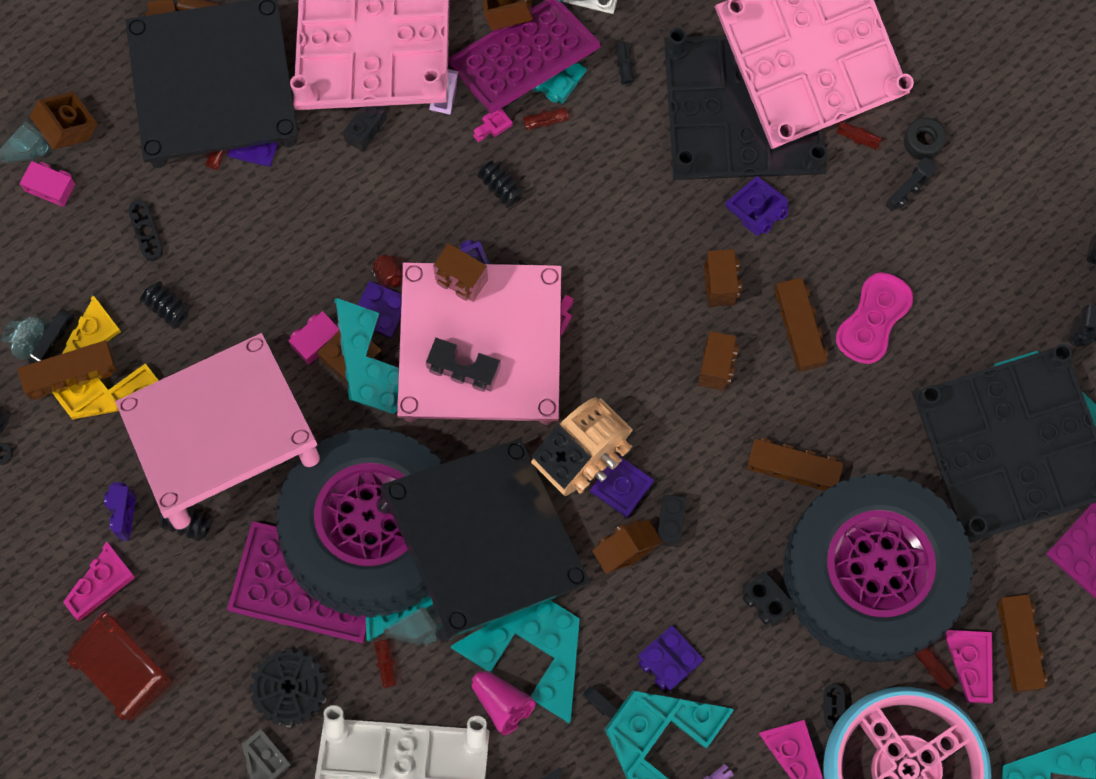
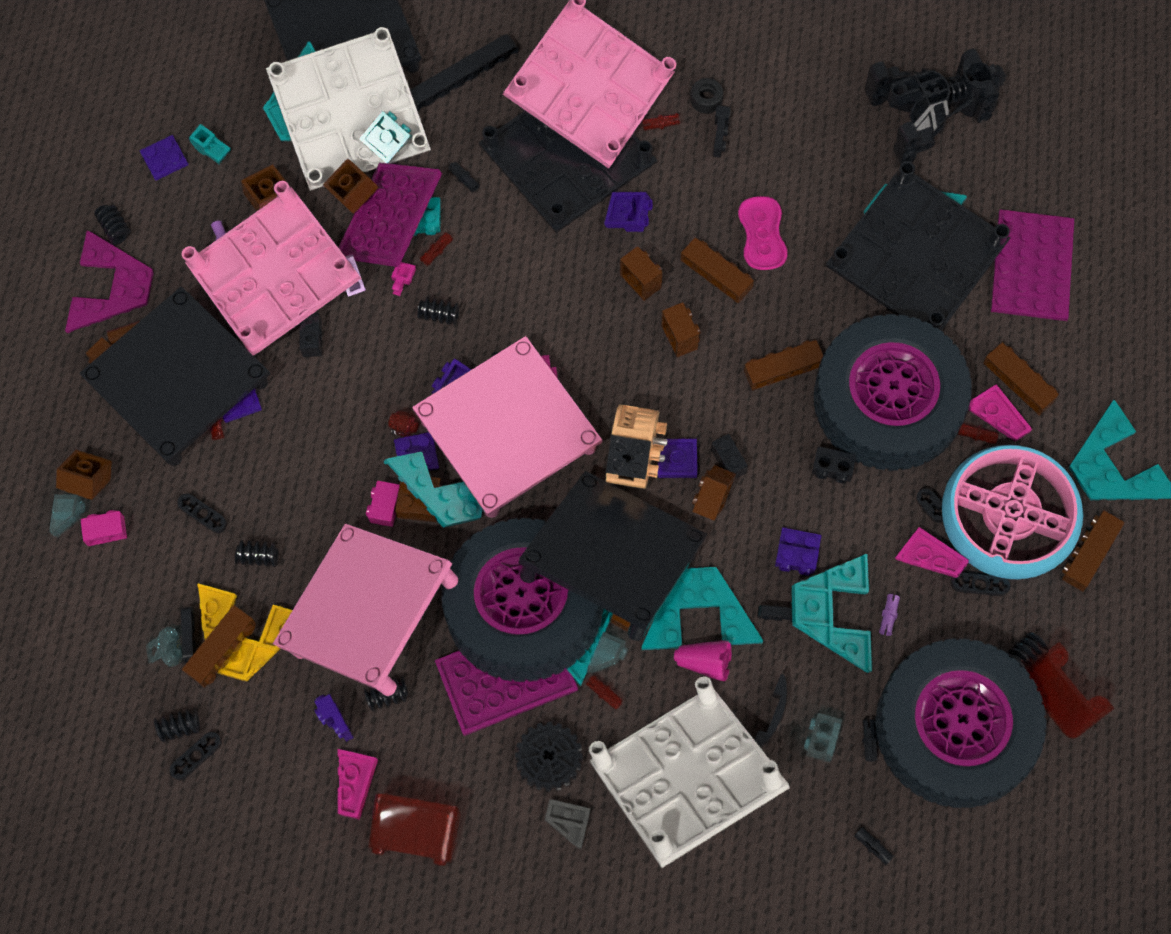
camera: 30 degrees left, 5 degrees down
(460, 273) = (461, 384): reddish brown brick -> none
(479, 374) = (494, 453): black arch -> none

